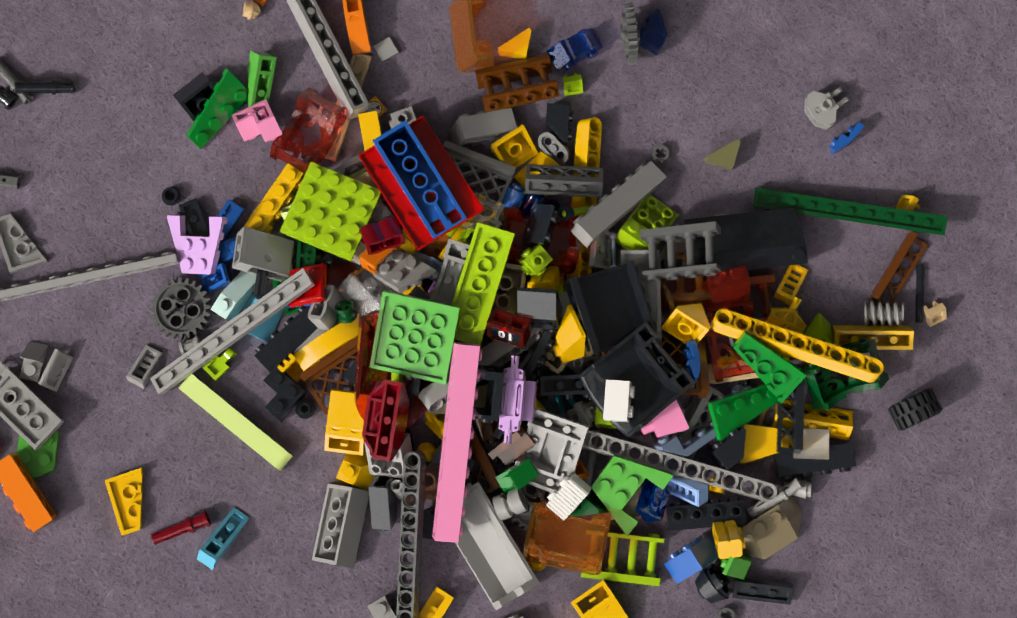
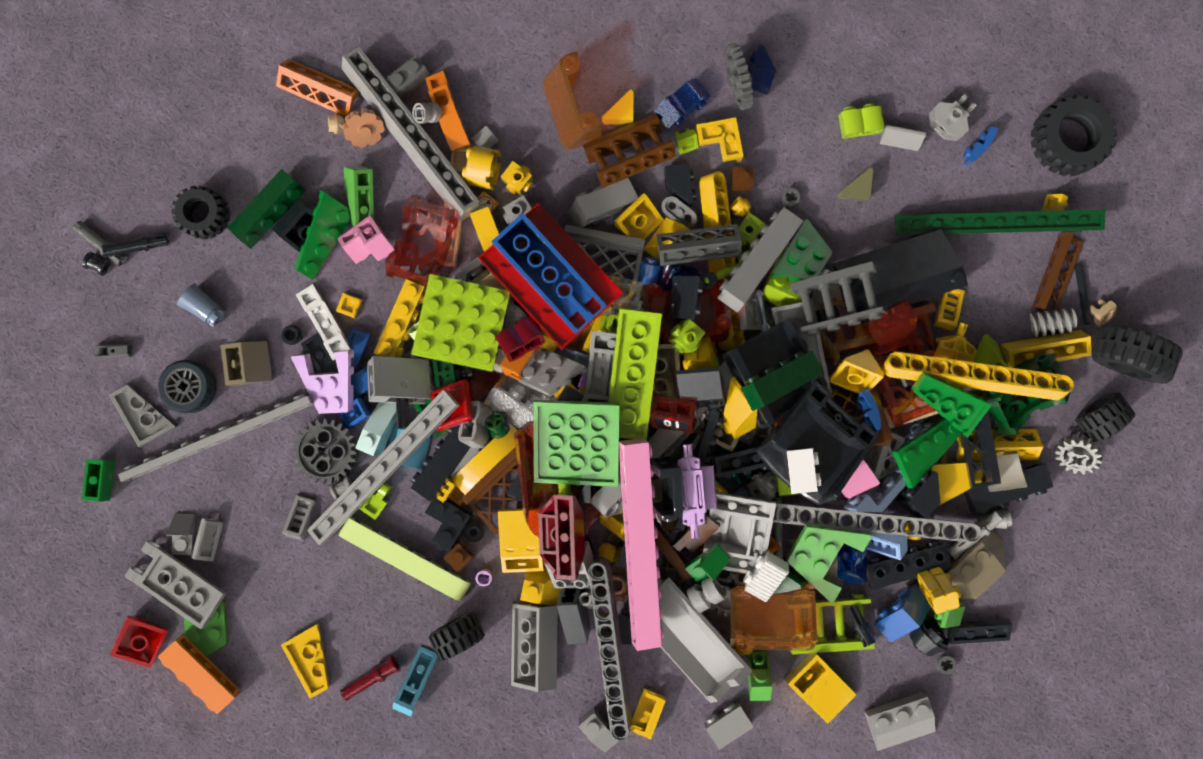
camera: 10 degrees left, 5 degrees up
(72, 235) = (189, 374): none -> wheel
(93, 153) = (201, 305): none -> sand blue plant
(99, 58) = (188, 201): none -> black tyre
(125, 214) = (246, 363): none -> dark tan slope
(171, 76) = (266, 209): none -> dark green brick
(203, 187) = (323, 320): none -> white slope
(229, 178) = (349, 305): none -> yellow tile
(270, 500) = (456, 636): none -> black tyre
(275, 18) = (363, 128): none -> nougat plant
(286, 429) = (459, 556): none -> reddish brown brick
(305, 456) = (483, 580): none -> lavender hinge
(336, 15) = (426, 112): none -> light grey wheel
(377, 74) = (481, 167): none -> yellow brick
(408, 84) = (515, 172): none -> yellow brick
(546, 593) = (760, 678): none -> bright green slope
(609, 83) = (722, 132): none -> yellow panel
(612, 154) = (740, 207): none -> yellow plate
(612, 313) = (782, 380): none -> dark green brick
(617, 129) = (741, 179): none -> reddish brown brick
(619, 169) = (756, 226): none -> lime brick
(650, 562) = (861, 626): none -> black axle
(662, 208) = (804, 256): none -> green wing
(739, 96) = (861, 121): none -> lime brick
(774, 117) = (902, 137): none -> light grey slope
(885, 440) = (1079, 454): none -> light grey gear
(948, 124) = (1091, 117): none -> black tyre
(952, 354) = (1137, 353): none -> black tyre

